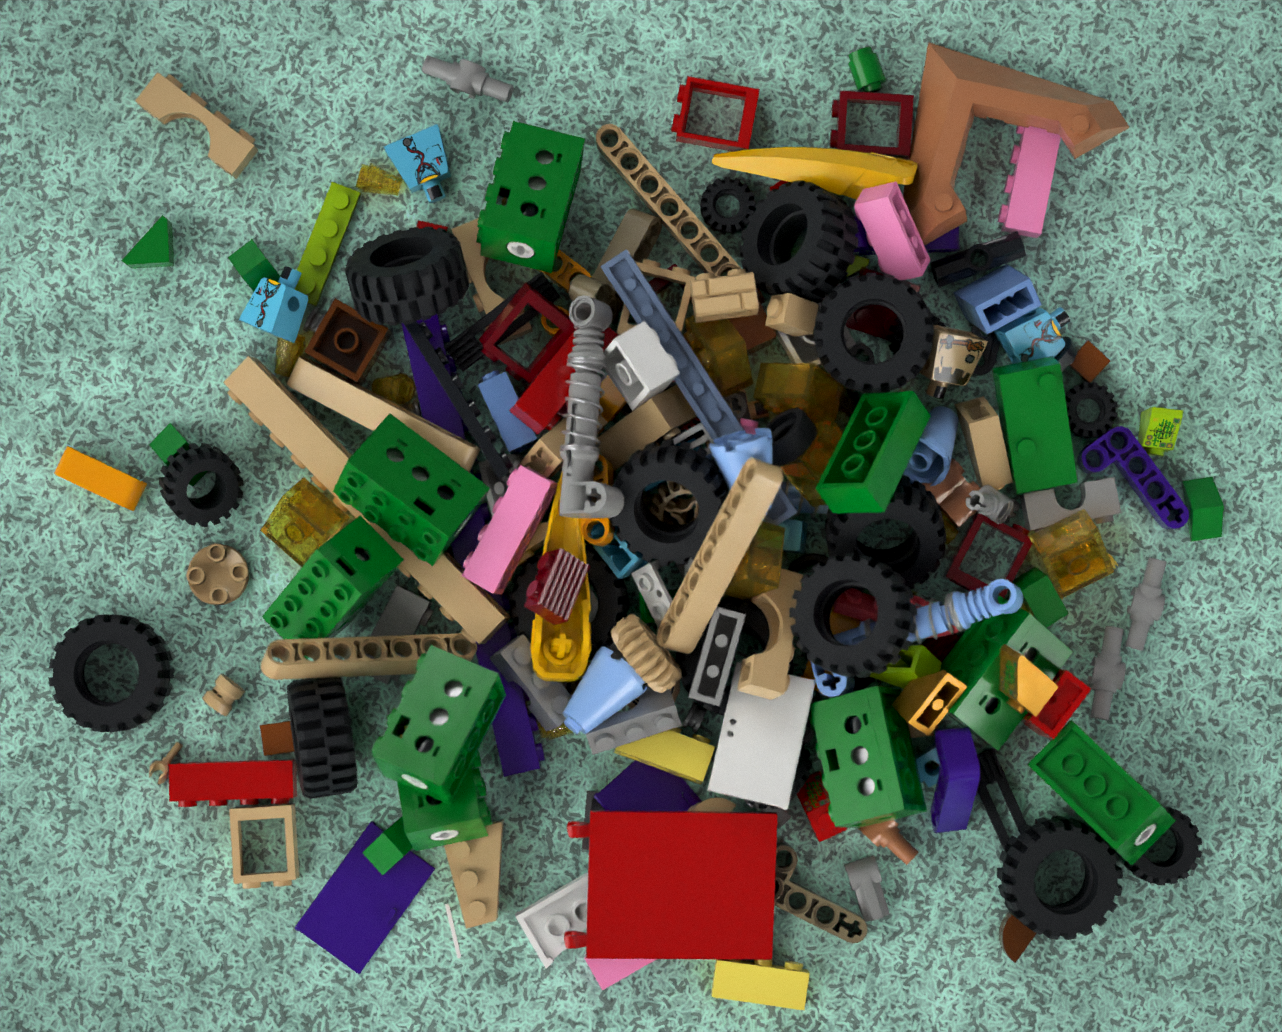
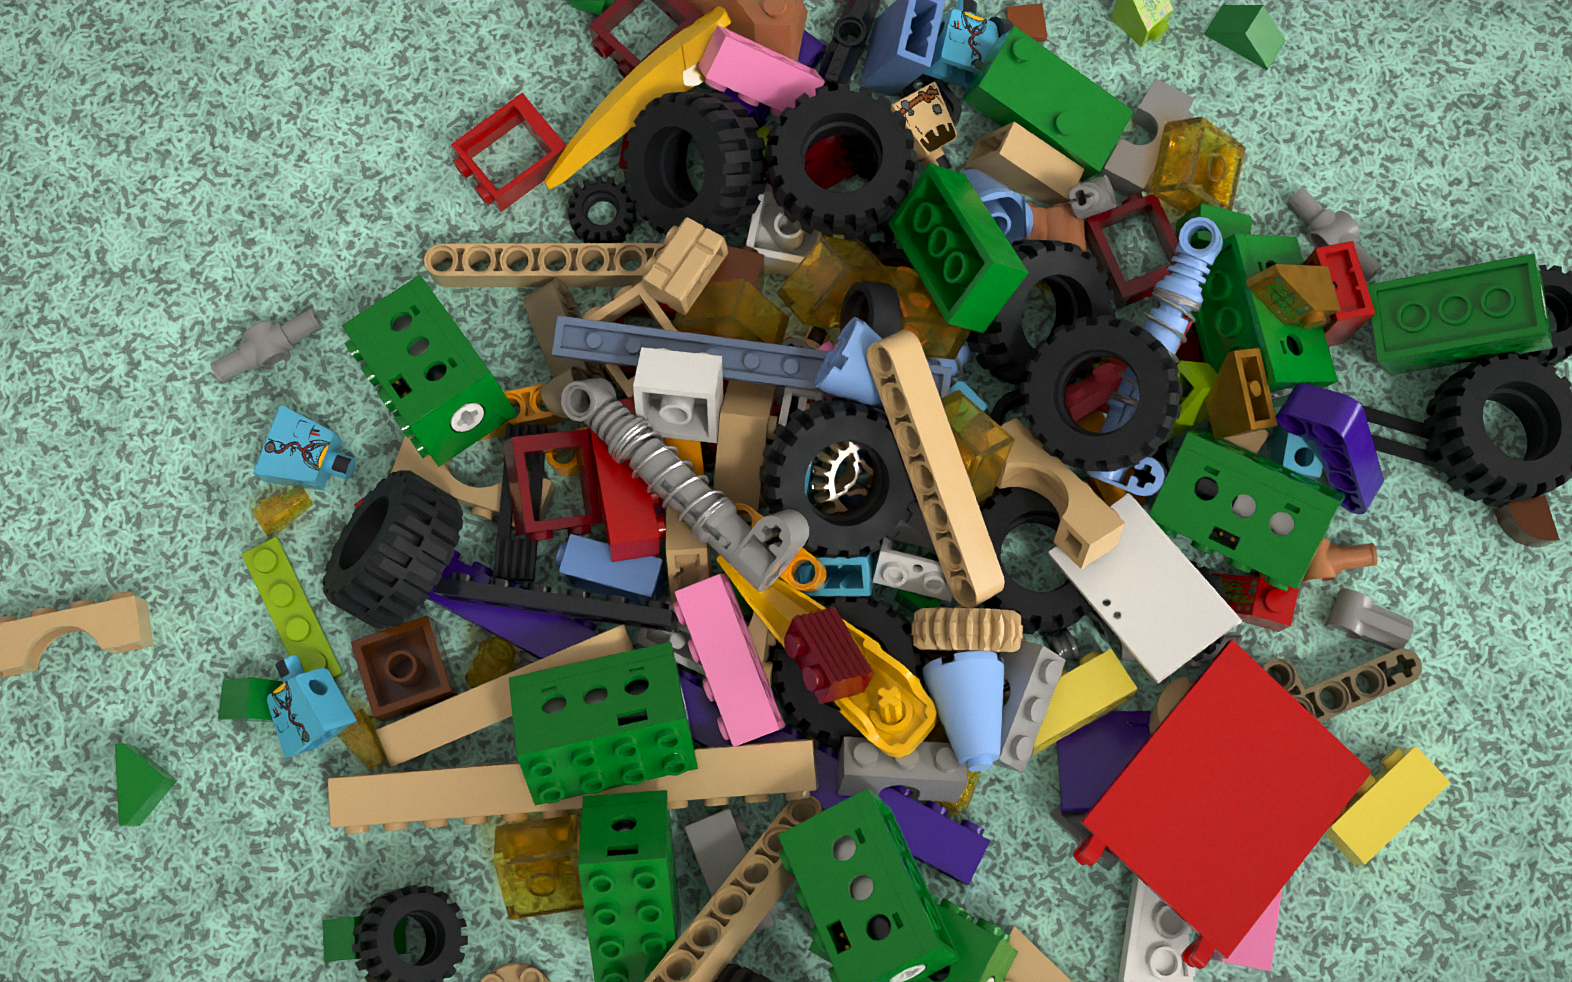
camera: 50 degrees left, 10 degrees down
(314, 320) = (354, 686): dark grey bush -> none
(716, 656) = (1030, 563): light grey brick -> none
(791, 314) = (757, 222): tan brick -> none
(1106, 406) = (1082, 40): black tyre -> none
(1138, 482) = (1229, 56): dark purple beam -> none
(1146, 604) = (1296, 149): light grey pin -> none

